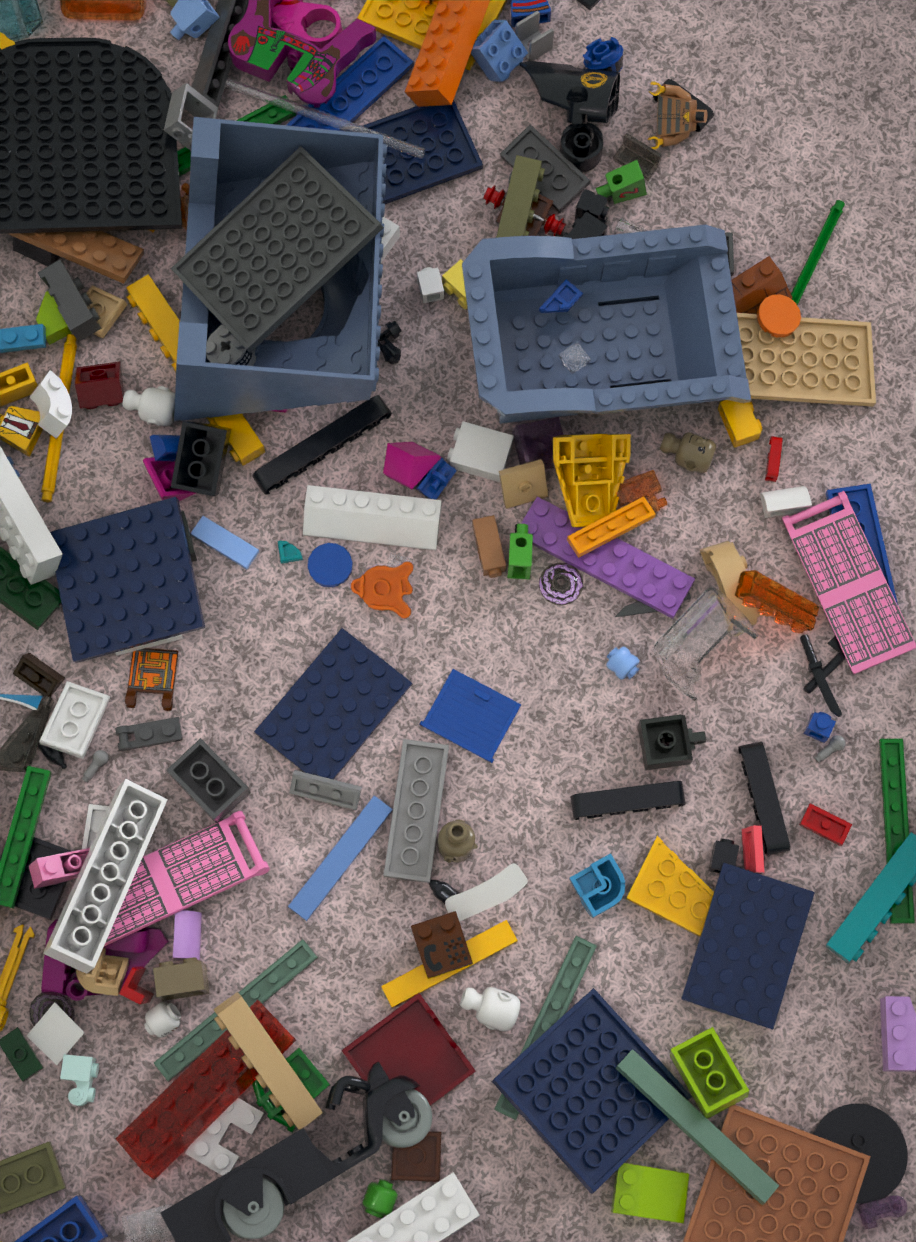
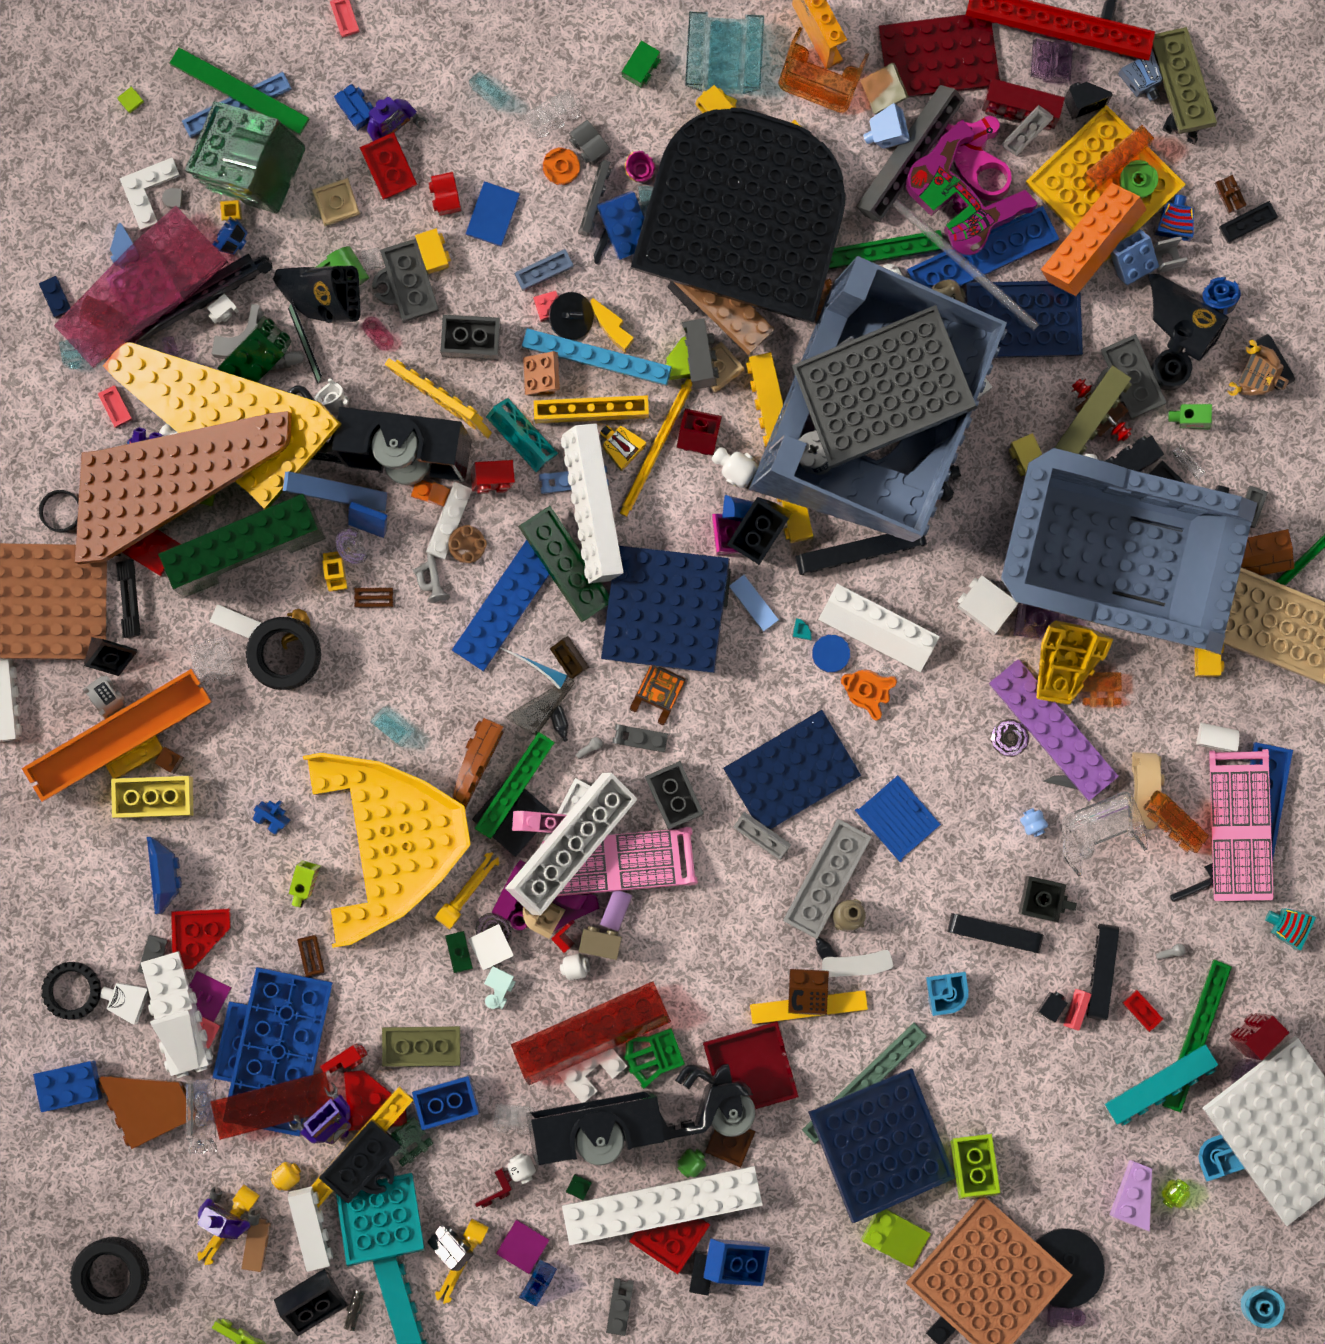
camera: 20 degrees right, 10 degrees up
(53, 404) = (656, 439): white brick -> none
(74, 720) = (586, 705): white tile -> none
(186, 98) = (868, 223): light grey window -> none
(260, 989) = (633, 979): sand green tile -> none
(267, 1060) = (646, 1033): tan brick -> none
(340, 858) = (754, 893): medium blue tile -> none
(408, 462) = (925, 593): dark pink slope -> none
(430, 284) = (999, 444): white brick -> none
(436, 479) = (942, 615): blue hips -> none
(489, 546) = (963, 686): medium nougat brick -> none
(493, 1007) = (829, 1053): white piece -> none
(520, 553) = (983, 709): bright green torso -> none
(523, 483) = (1011, 646): tan plate -> none
(562, 299) = (1101, 510): blue tile -> none
(574, 357) = (1092, 563): clear plate -> none
(593, 204) = (1159, 431): black brick -> none
(611, 526) = (1067, 709): light orange plate -> none
(632, 150) = (1214, 393): clear smoke panel -> none
(671, 889) = (1008, 1026): yellow wing -> none
(691, 451) = (1157, 669): dark tan piece -> none
(697, 1127) = (950, 1203): sand green tile -> none
(748, 945) = (1043, 1081): dark blue plate -> none
(773, 459) = (1223, 699): red piece -> none
(778, 315) = (1275, 583): orange tile -> none
(816, 668) = (1186, 883): black sword -> none
(819, 726) = (1170, 932): blue brick -> none

